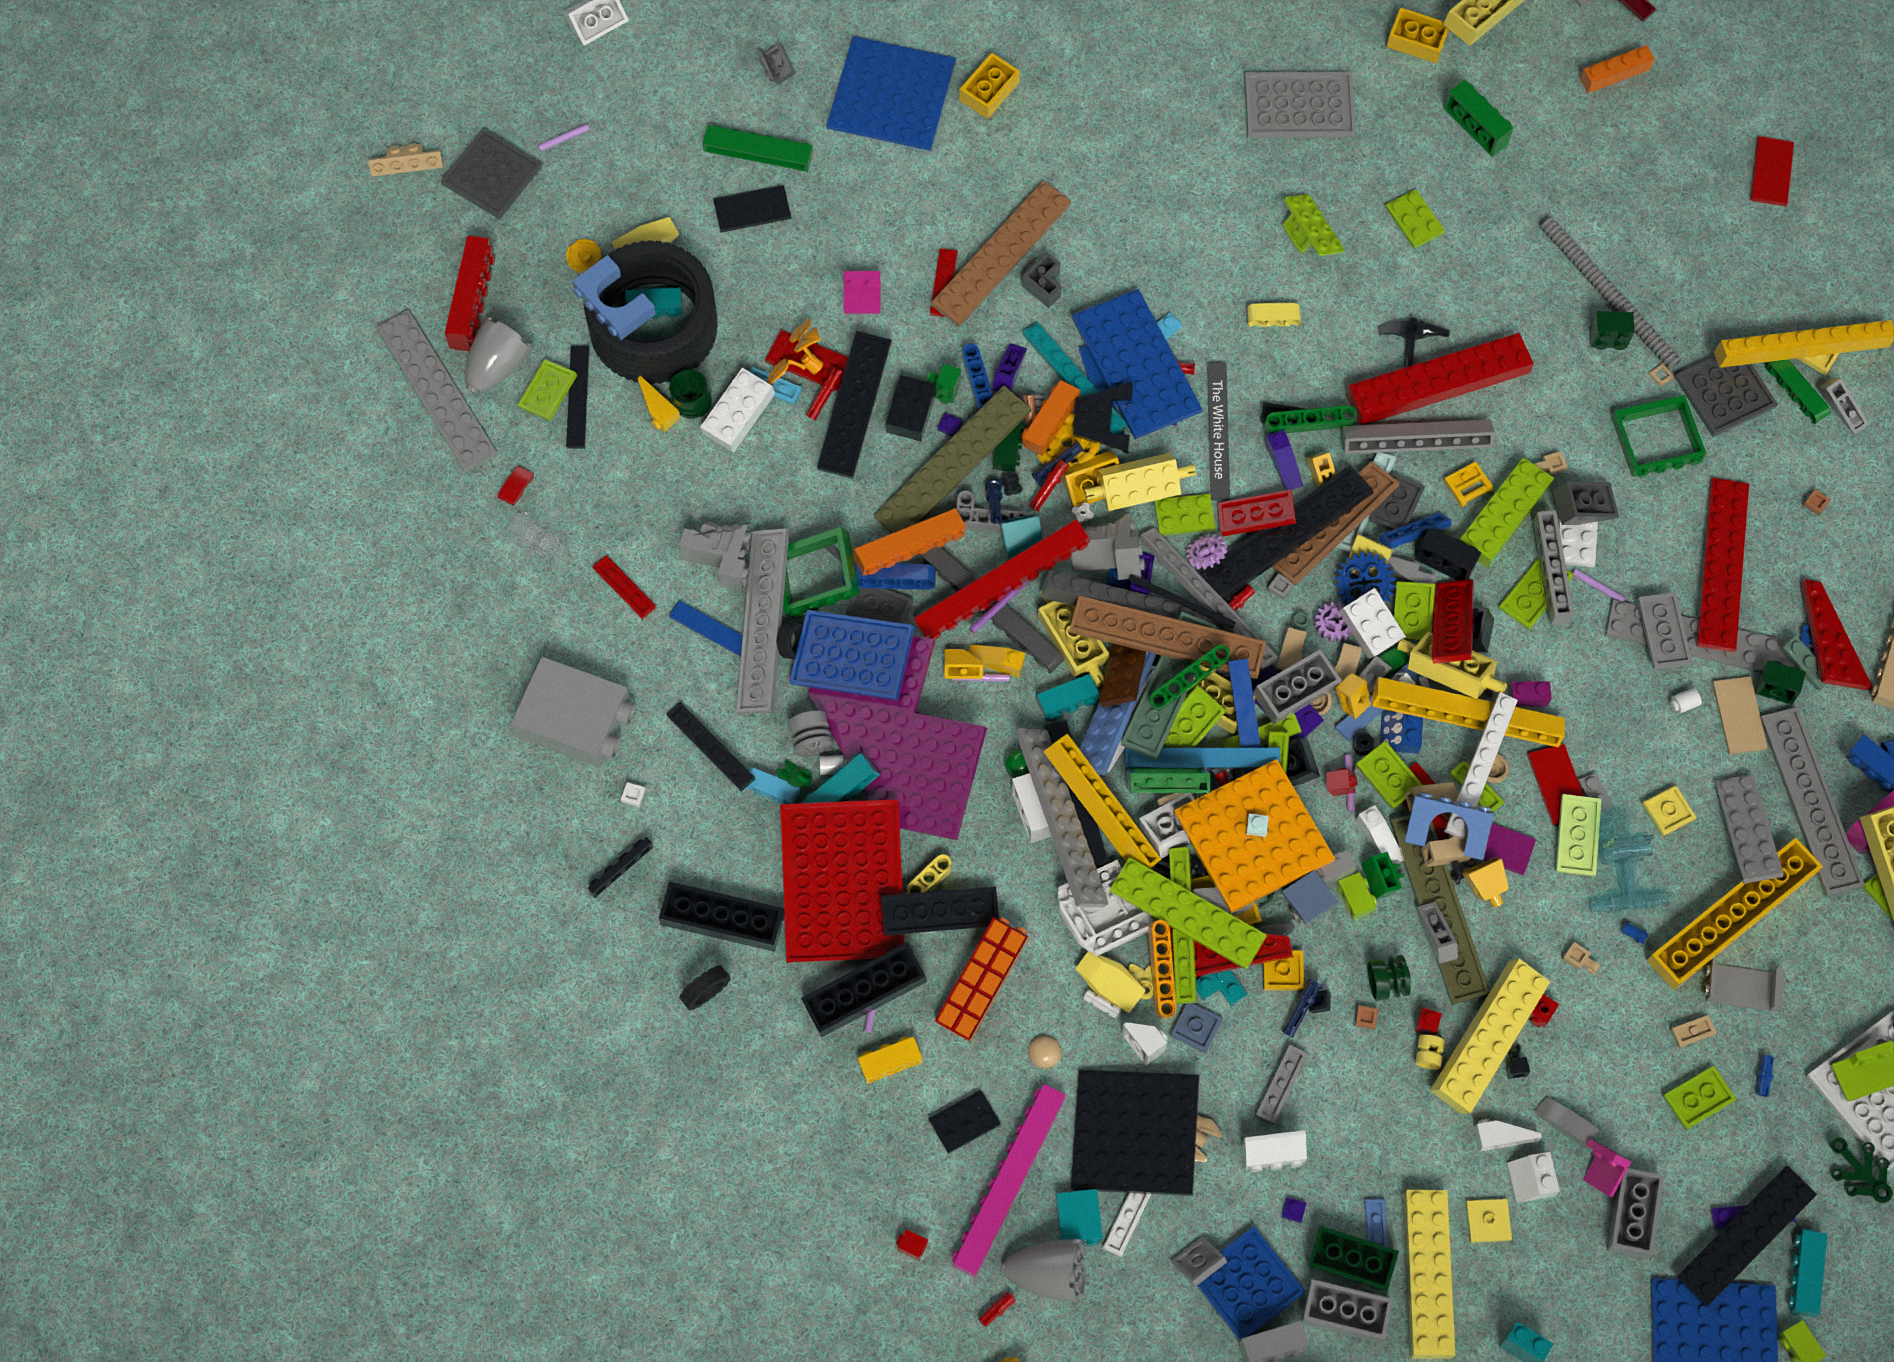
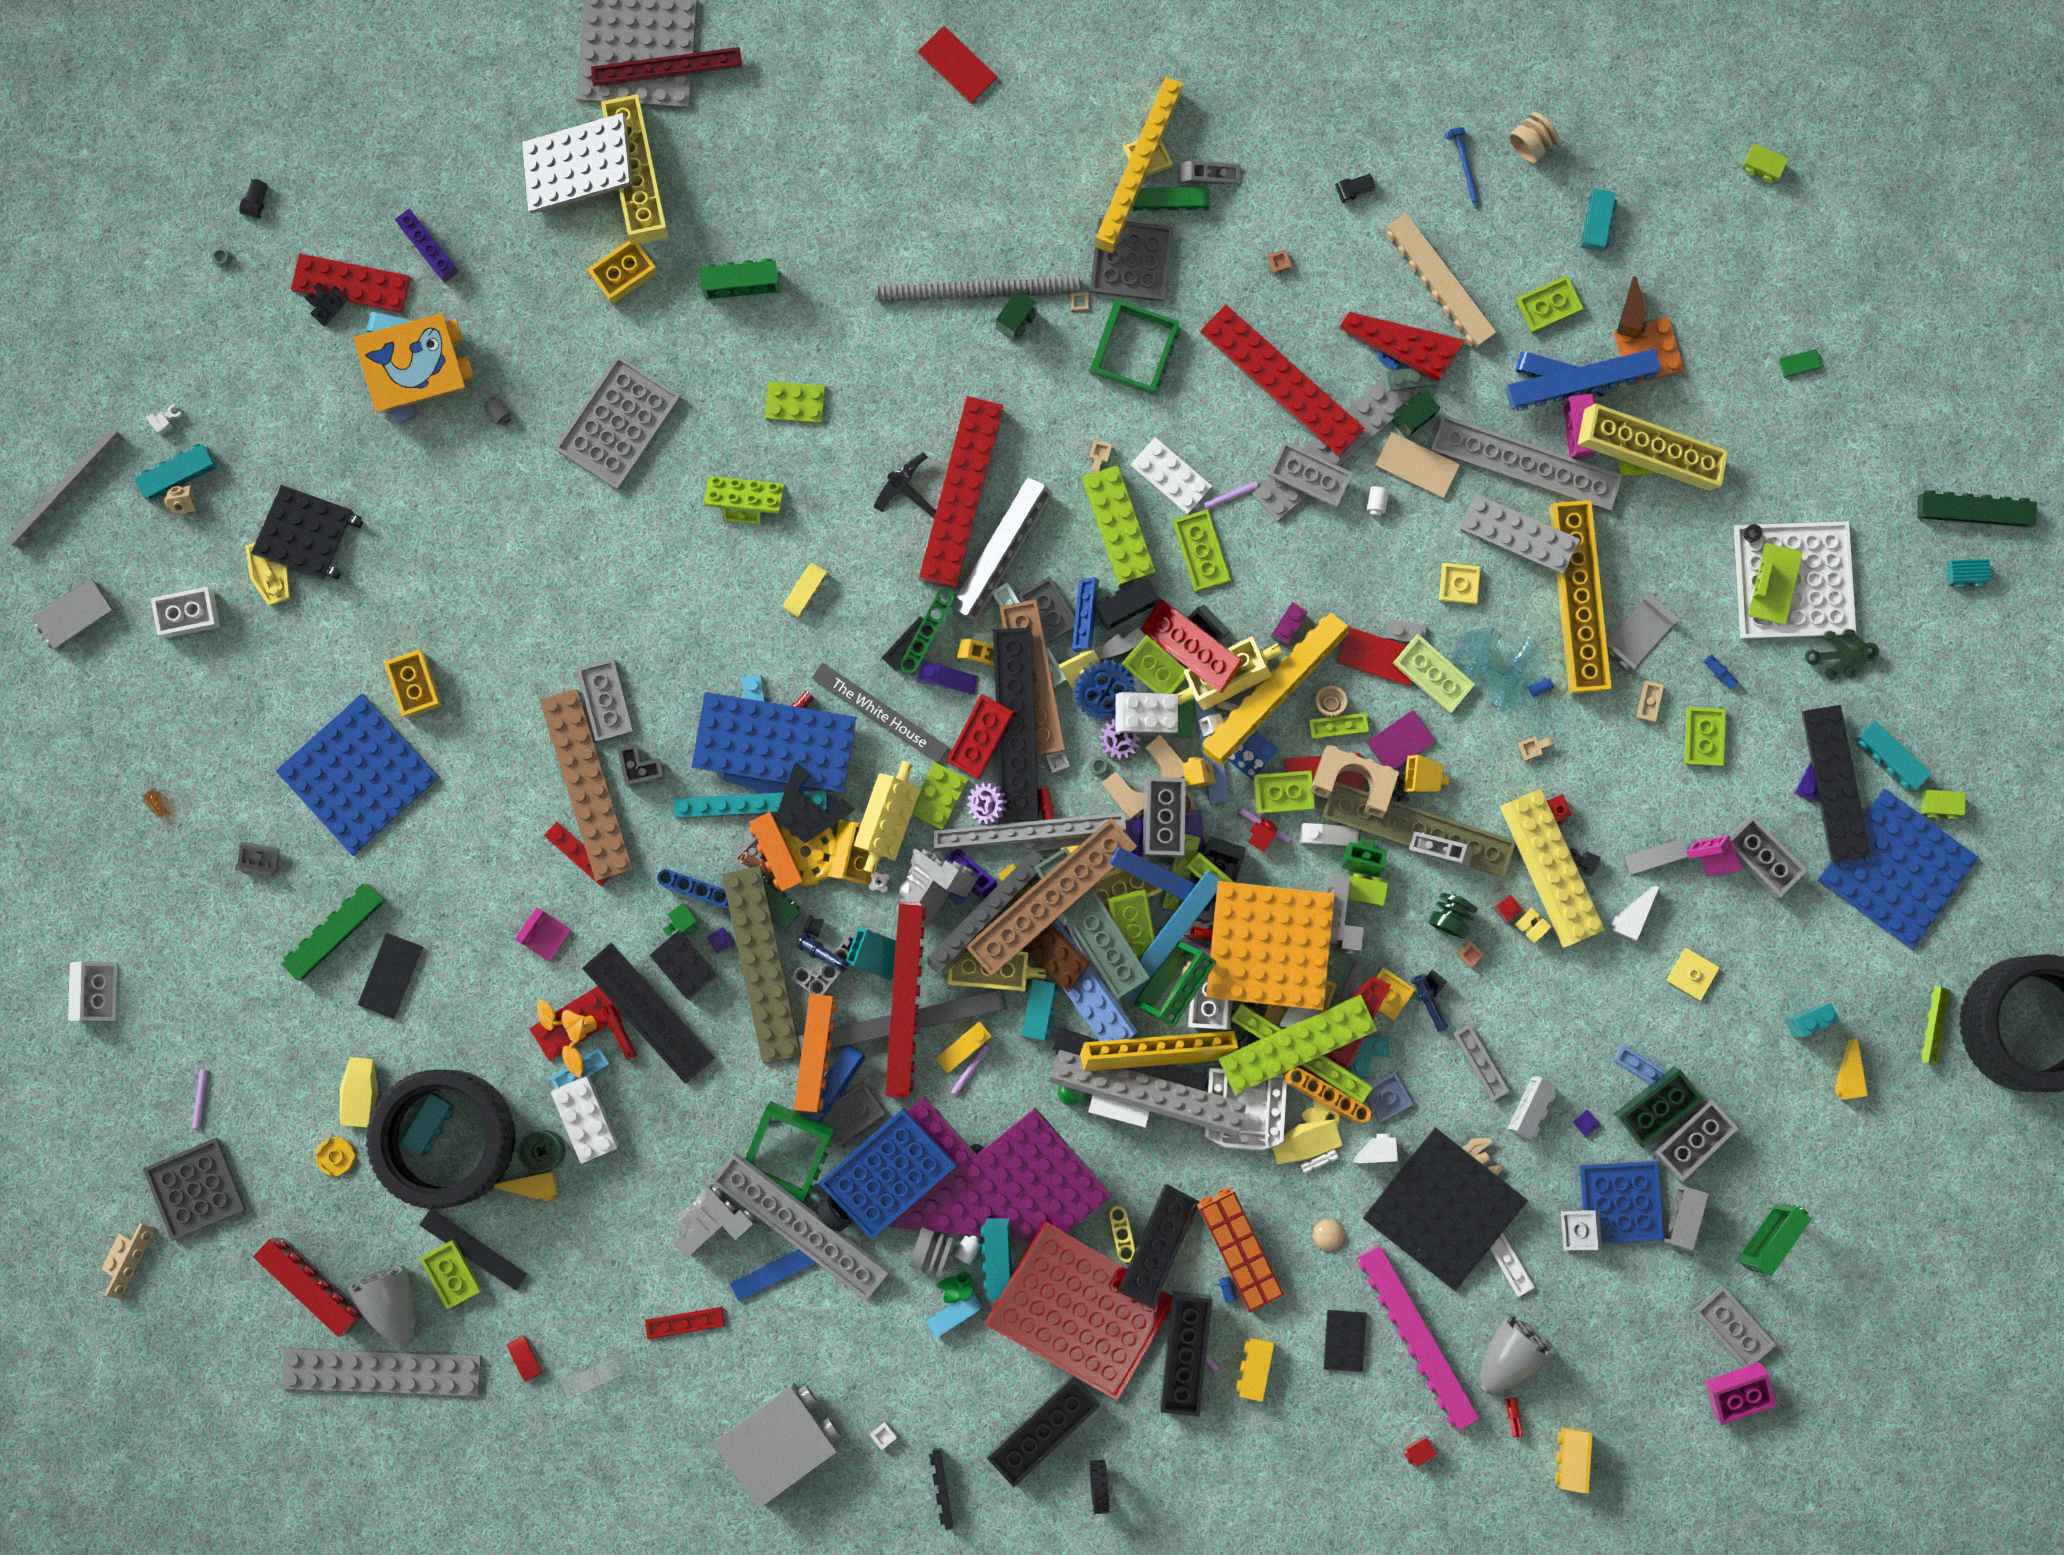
camera: 60 degrees left, 15 degrees up
(619, 320) = (392, 1187): medium blue arch -> none
(710, 746) = (884, 1343): black tile -> none
(941, 995) = (1227, 1289): none -> blue pin
(962, 665) = (951, 1081): yellow slope -> none
(994, 609) = (923, 1025): medium lavender bar -> none
(1009, 367) = (702, 853): dark purple slope -> none
(1041, 476) = (822, 883): dark blue pin -> none
(1053, 478) = (835, 889): red pin -> none
(1078, 226) = (605, 700): none -> light grey plate
(1079, 1216) = (1484, 1301): teal brick -> none
(1194, 669) = (1107, 914): green beam -> none
(1216, 616) = (1056, 840): black bar -> none
(1243, 18) = (498, 411): none -> dark grey brick
(1257, 825) = (1267, 939): light aqua plate -> none
(1309, 897) = (1352, 937): sand blue tile -> none
(1362, 748) = (1239, 790): black wheel -> none
(1375, 669) = (1188, 742): light grey plate -> none
(1429, 1274) = (1706, 1053): light yellow brick -> none
(1466, 478) = (1064, 537): yellow plate -> none
(1477, 820) = (1343, 786): medium blue arch -> none
(1482, 760) = (1331, 714): white plate -> none
(1533, 1177) = (1683, 915): white slope -> none
(1553, 567) = (1196, 525): light grey brick -> none
(1585, 502) = (1156, 455): dark grey slope -> none
(1617, 69) = (772, 123): orange brick -> none

